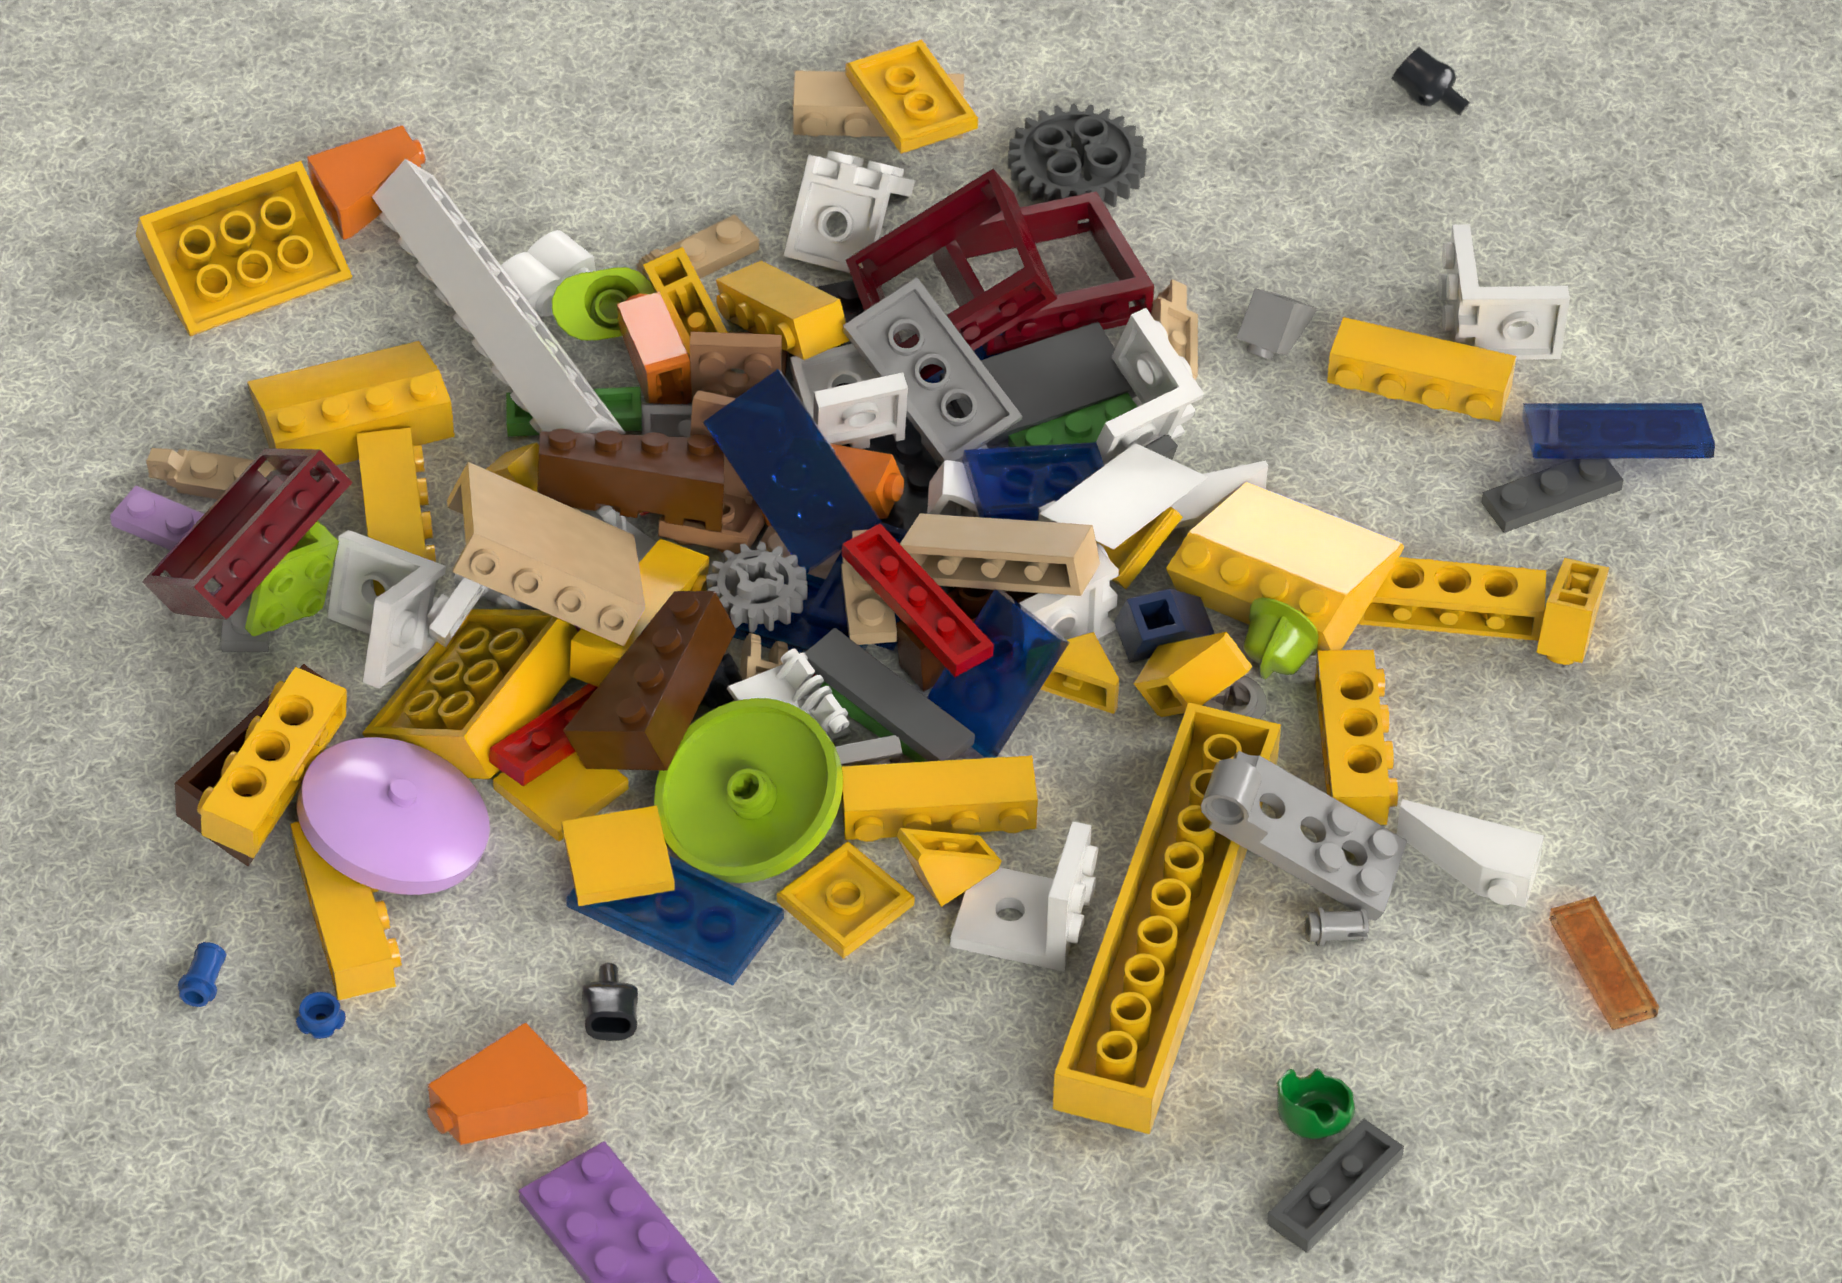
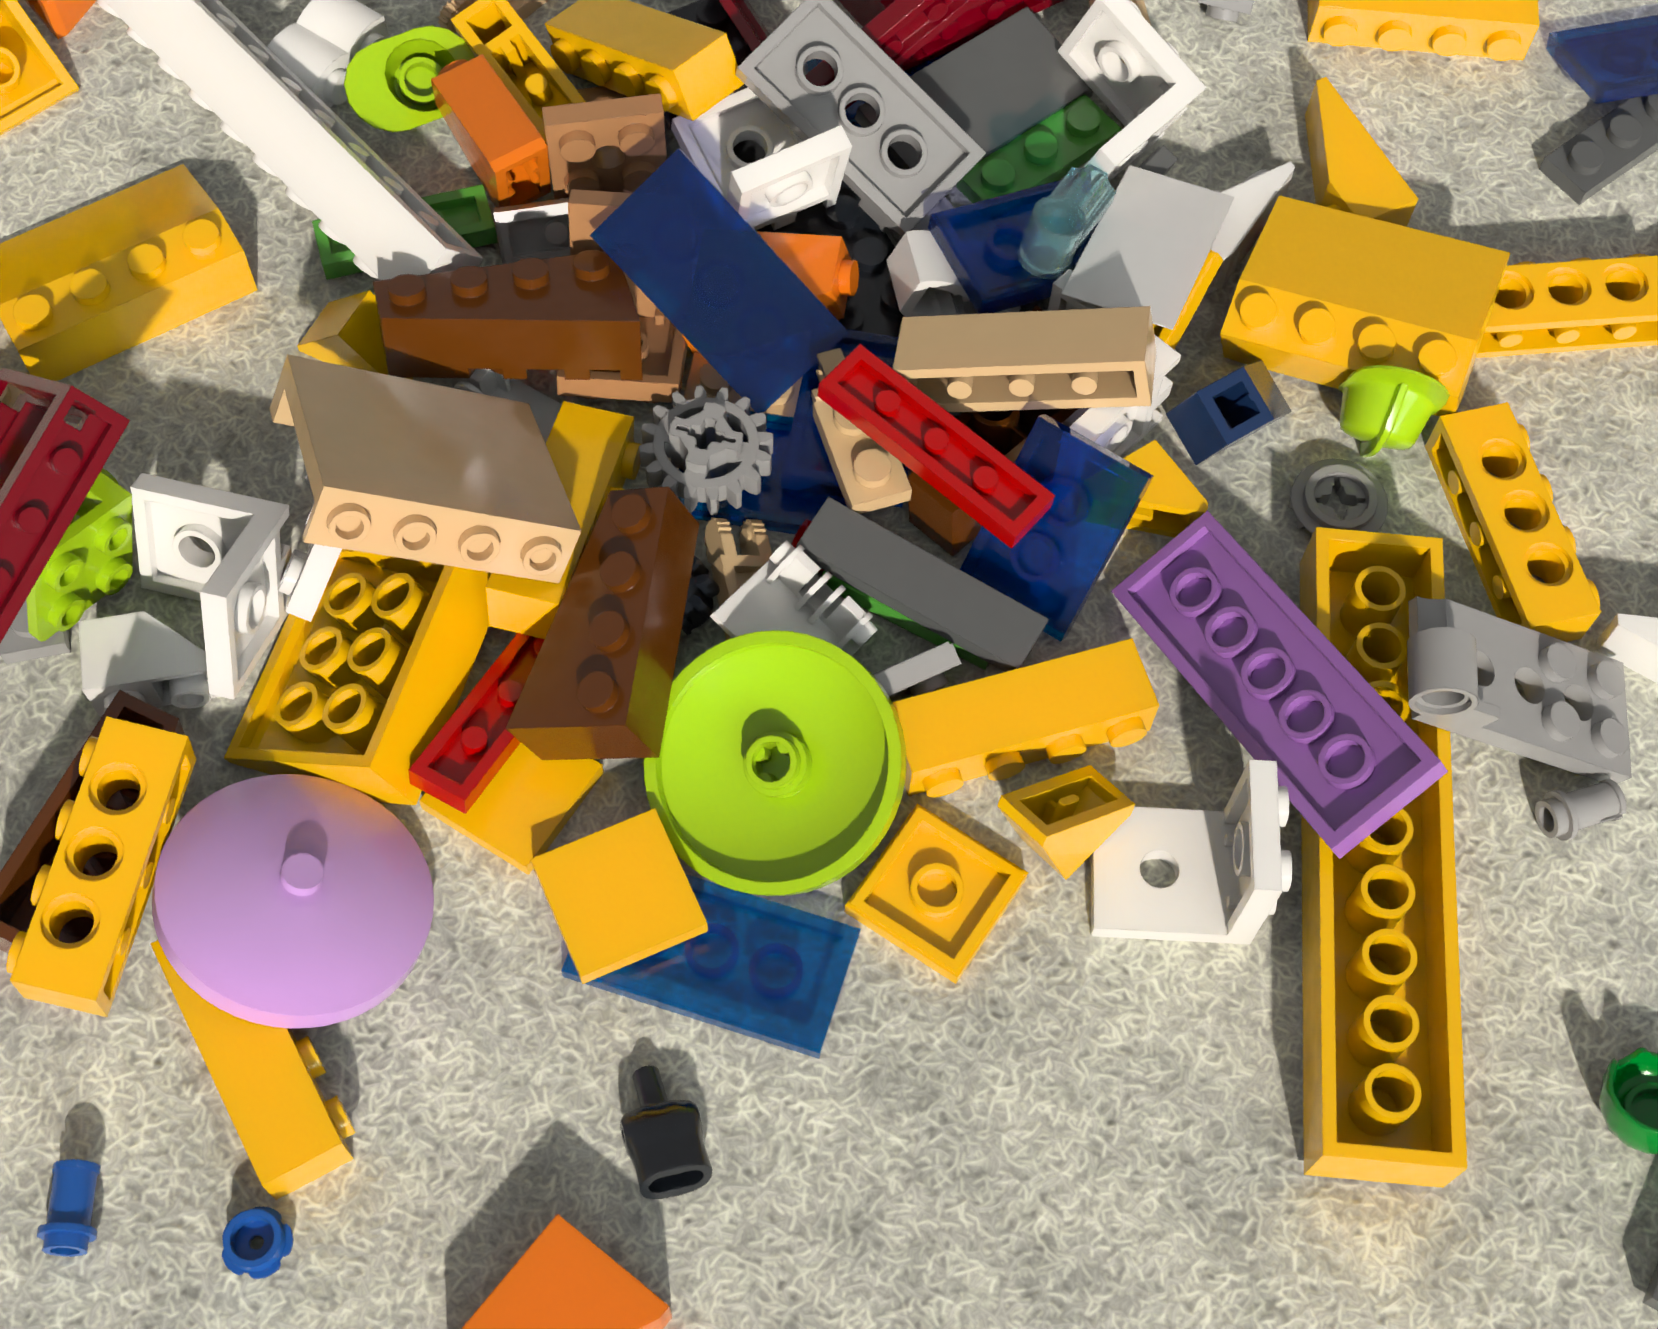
camera: 15 degrees left, 15 degrees up
(325, 653) = (141, 659): none -> white slope
(394, 492) = (195, 399): yellow brick -> none
(1058, 466) = (1064, 221): none -> clear light blue piece
(1120, 791) = (1279, 684): none -> medium lavender plate
(1190, 672) = (1294, 476): yellow slope -> none
(1318, 473) = (1349, 165): none -> yellow slope

